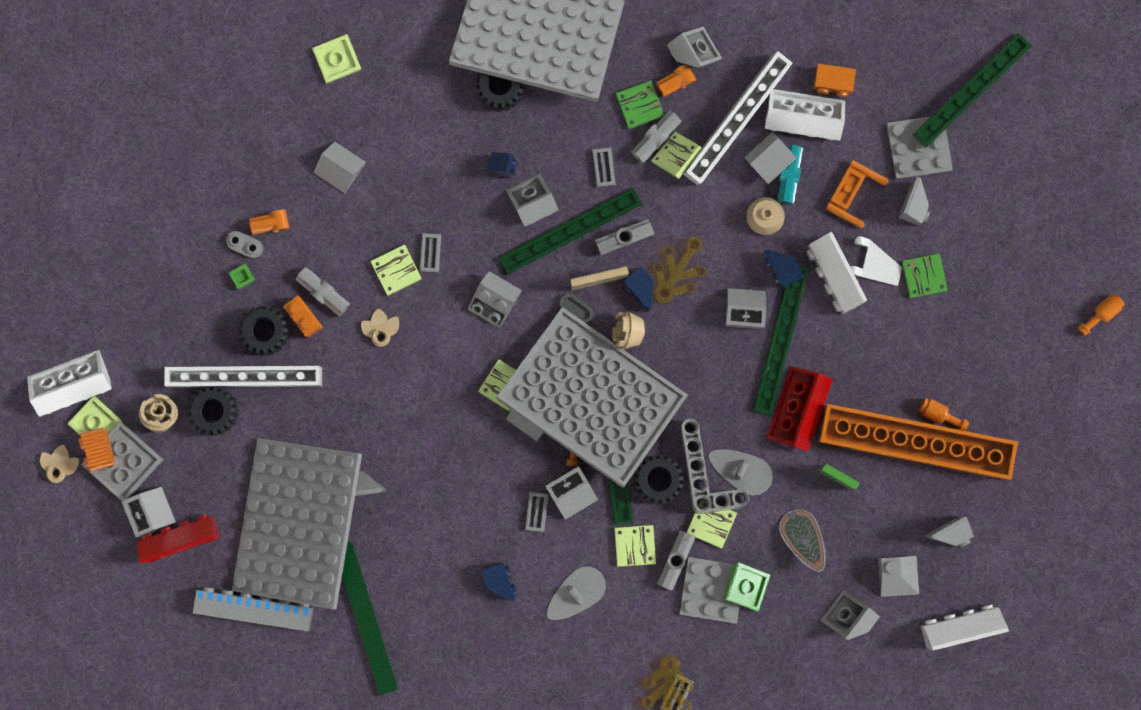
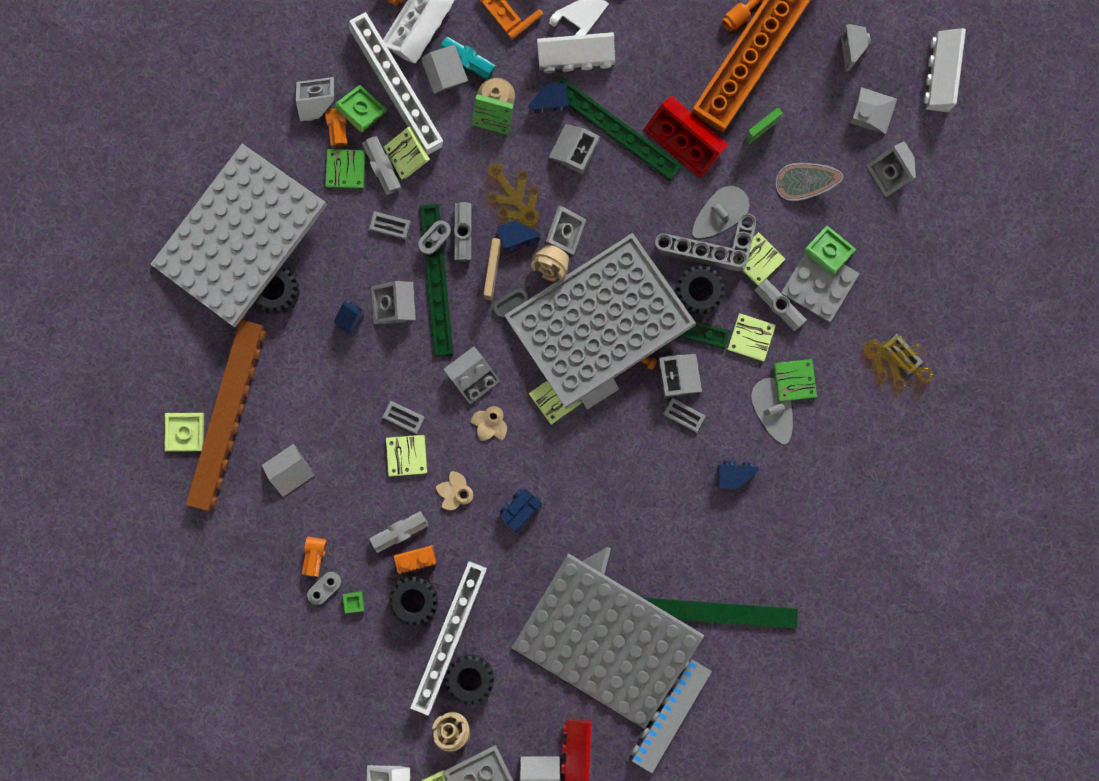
camera: 65 degrees left, 0 degrees up
(366, 89) = (225, 415): none -> dark orange brick
(387, 395) = (520, 509): none -> dark blue brick
(453, 334) = (487, 426): none -> tan plate
(609, 211) = (434, 237): none -> light grey plate
(611, 602) = (795, 380): none -> bright green tile
(664, 331) = (565, 230): none -> light grey slope
(701, 95) = (360, 108): none -> bright green tile
(745, 219) = (492, 114): none -> bright green tile

